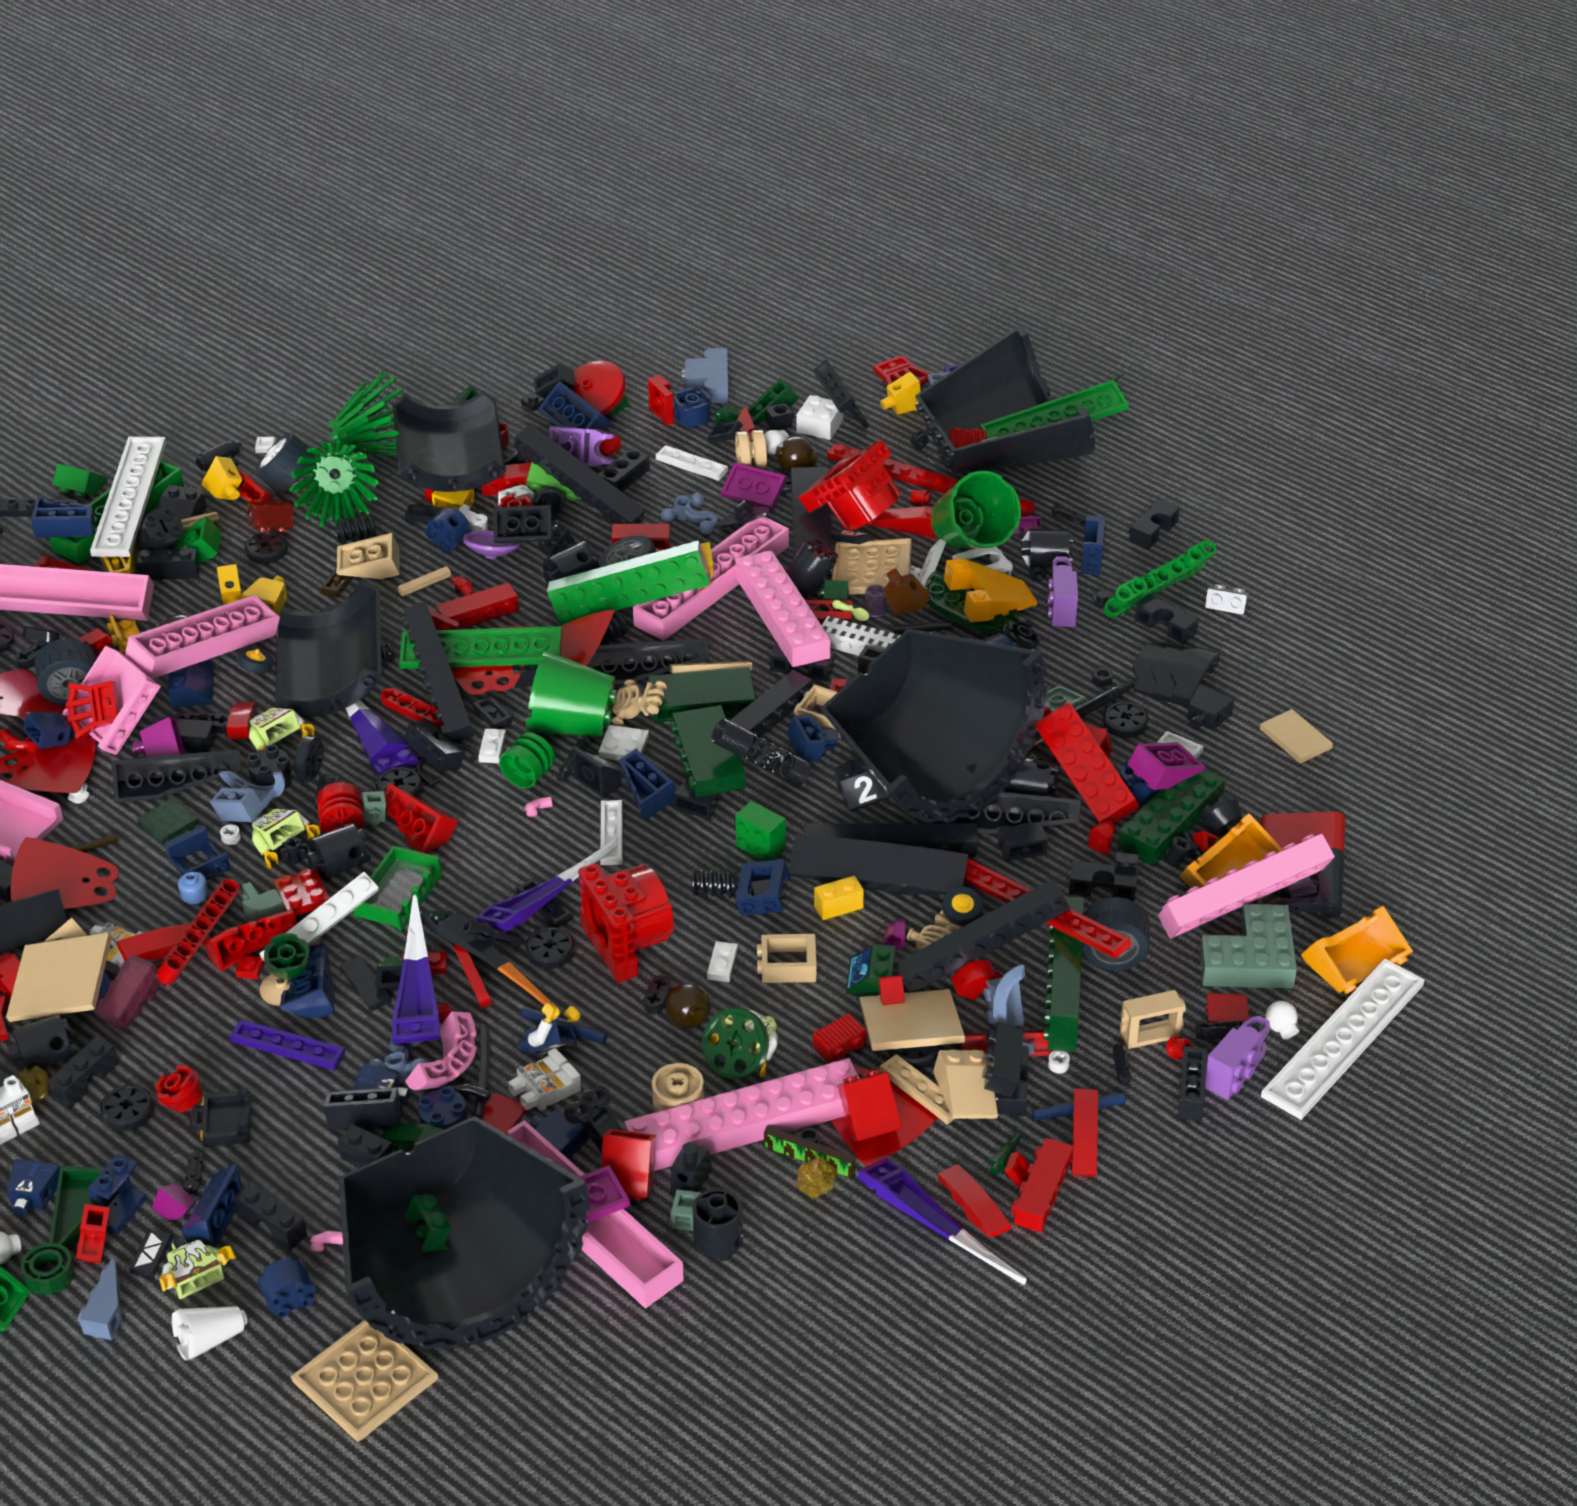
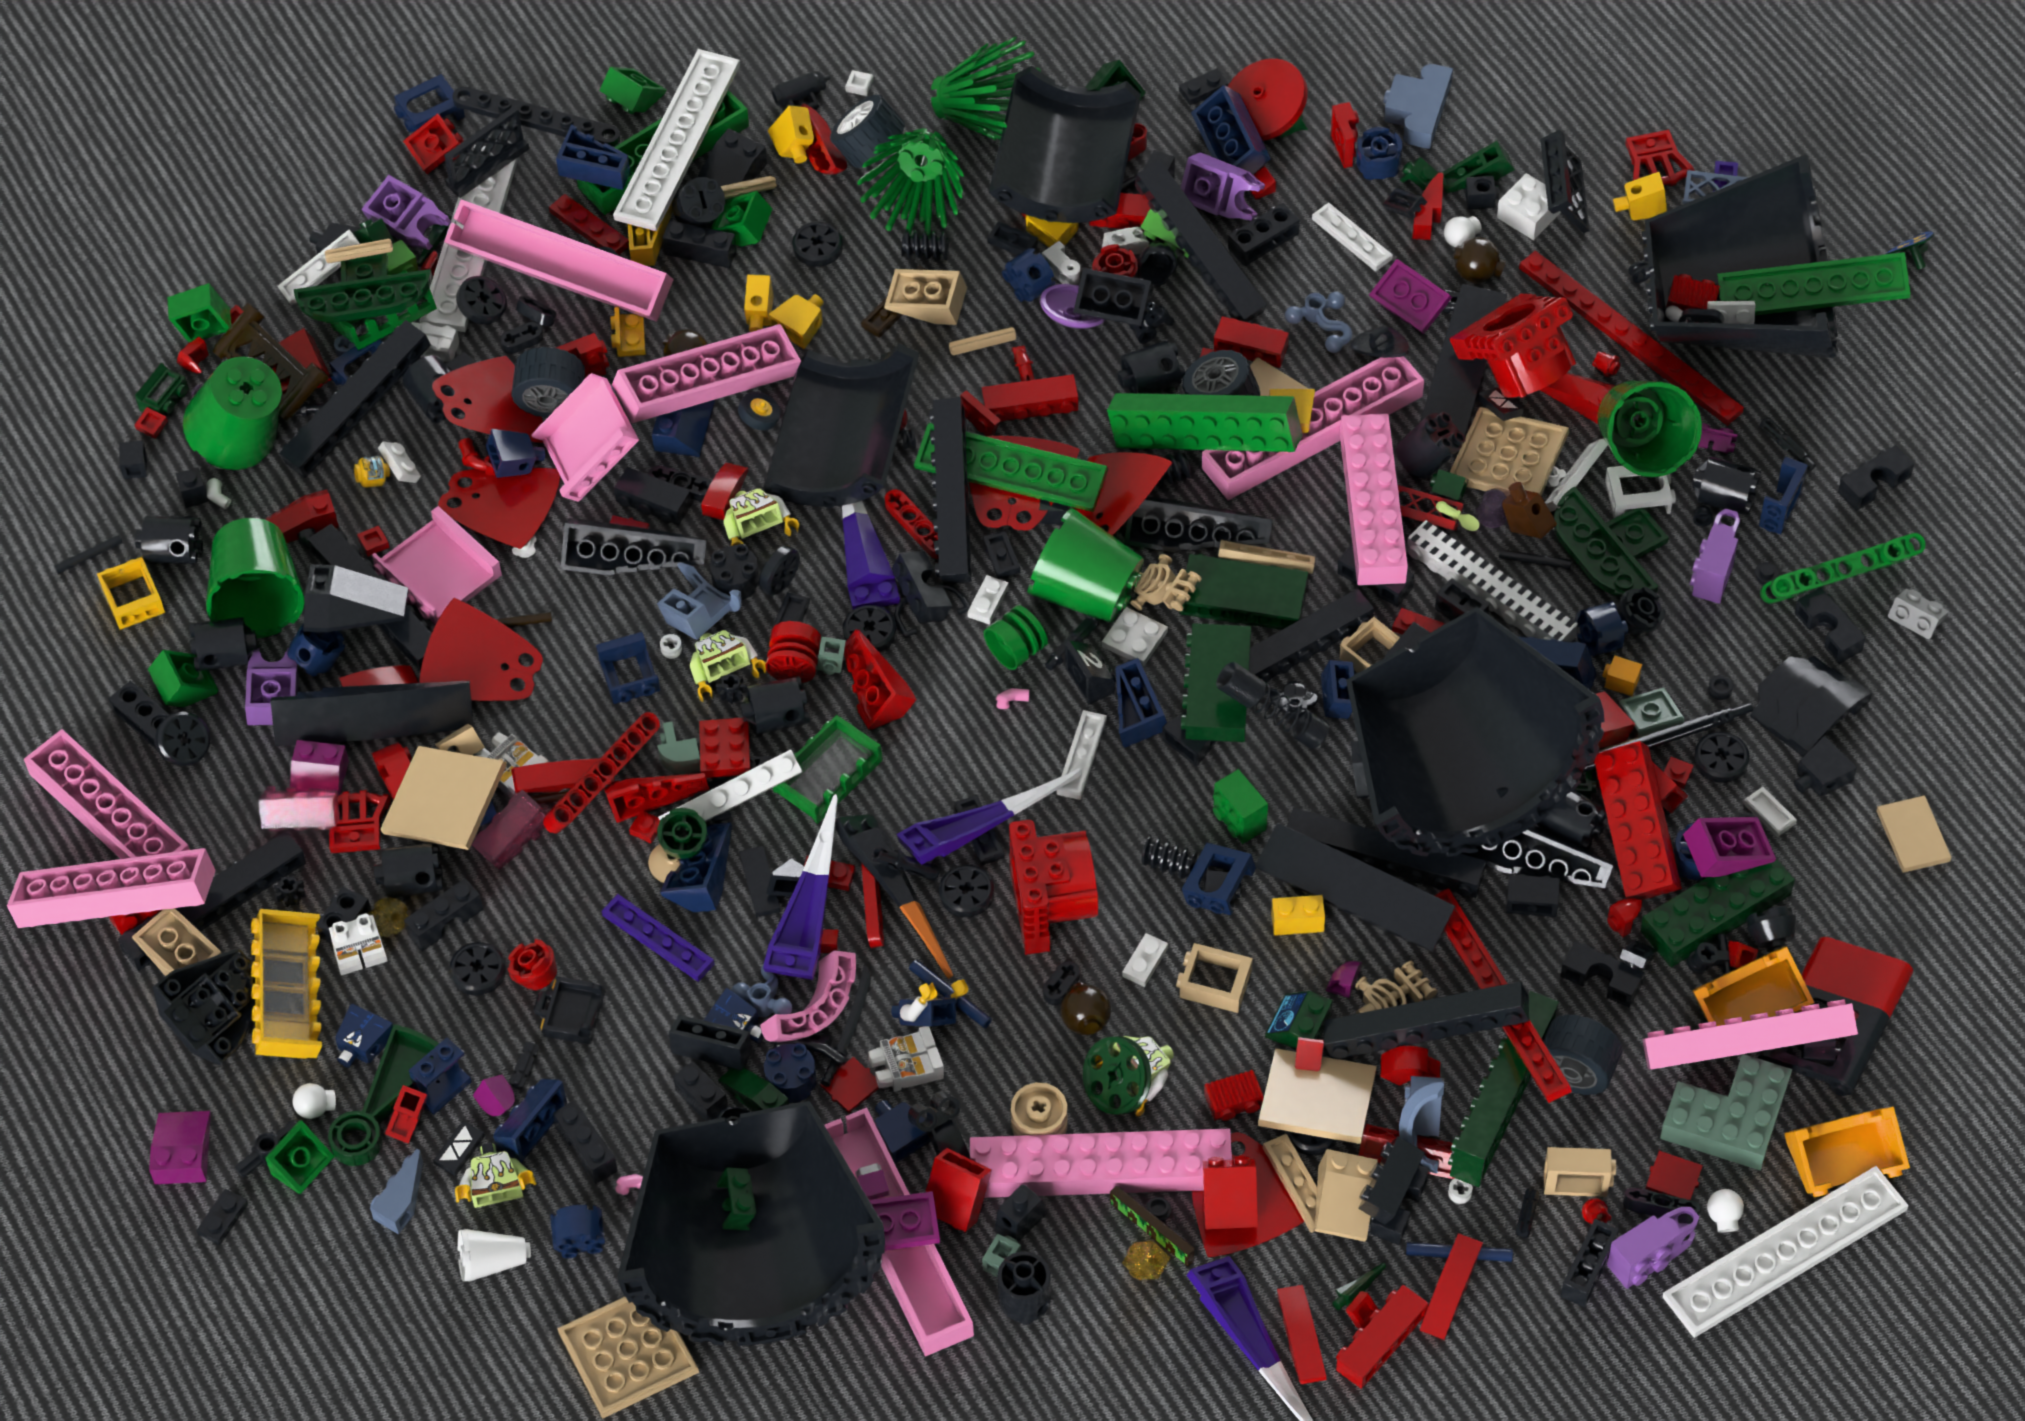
camera: 20 degrees right, 15 degrees up
(103, 703) = (575, 440): red plate -> none
(160, 739) = (627, 505): magenta torso -> none
(167, 821) = (609, 609): clear green tile -> none
(193, 887) = (612, 710): medium blue head -> none
(270, 514) = (831, 203): clear red piece -> none
(547, 381) = (1212, 77): black brick -> none
(751, 449) = (1422, 243): tan wheel -> none
(962, 905) = (1427, 967): black wheel -> none
(993, 591) = (1637, 535): light orange wedge -> none

